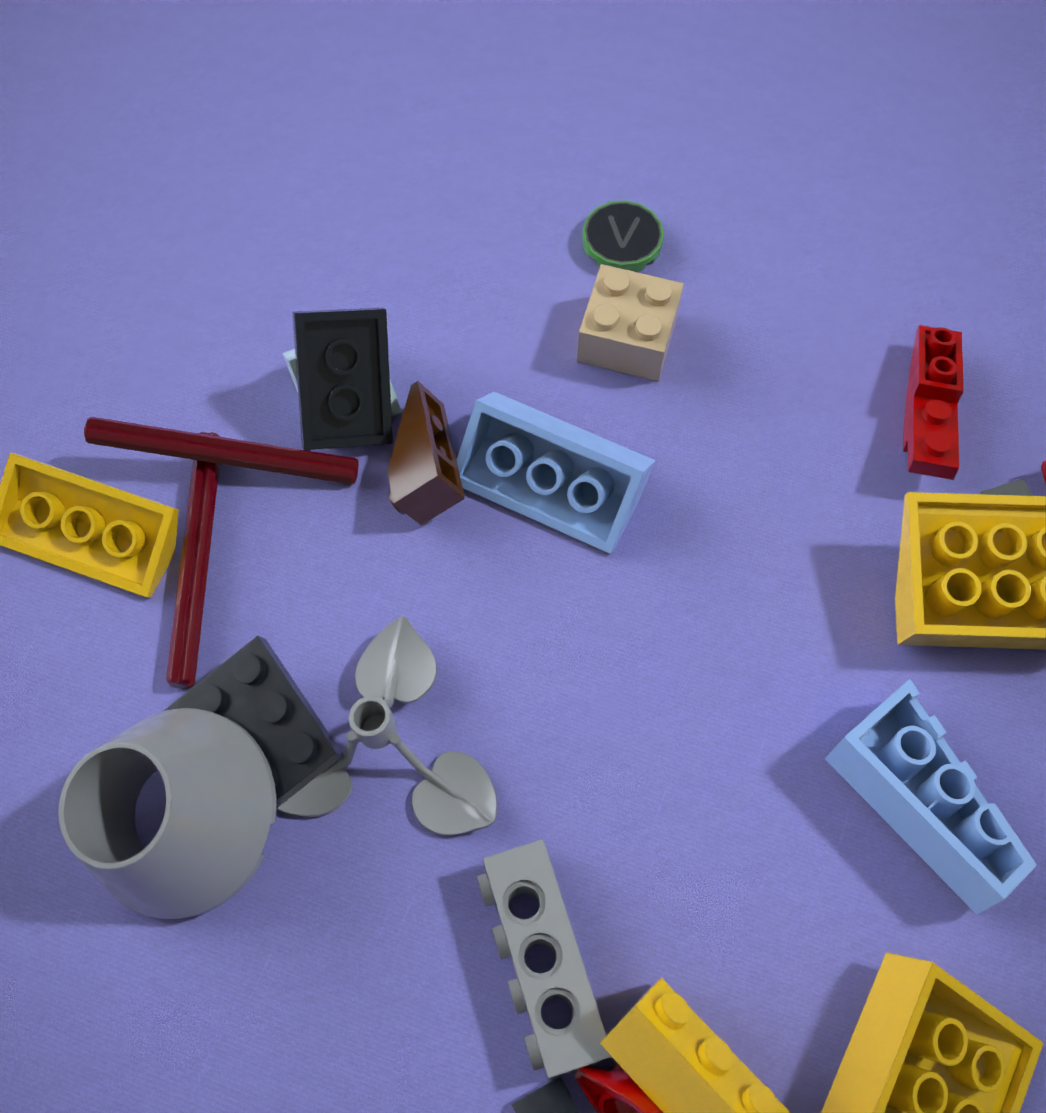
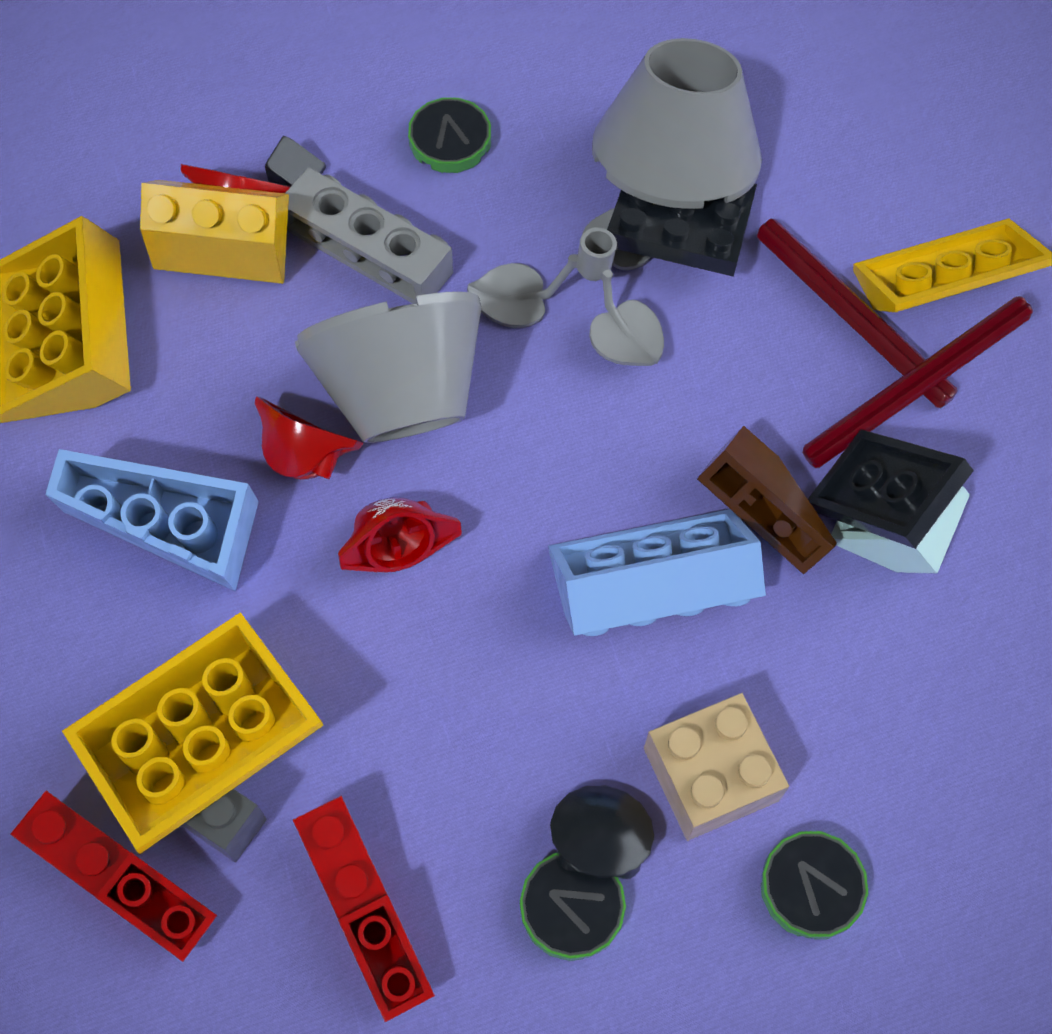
camera: 140 degrees right, 0 degrees up
(357, 1033) = (449, 134): none -> black tile
(632, 760) = (398, 365): none -> light grey cone
(730, 643) = (396, 536): none -> red hat
(736, 340) = (601, 832): none -> black dish
(754, 777) = (297, 446): none -> red hat
(786, 323) = (571, 911): none -> black tile

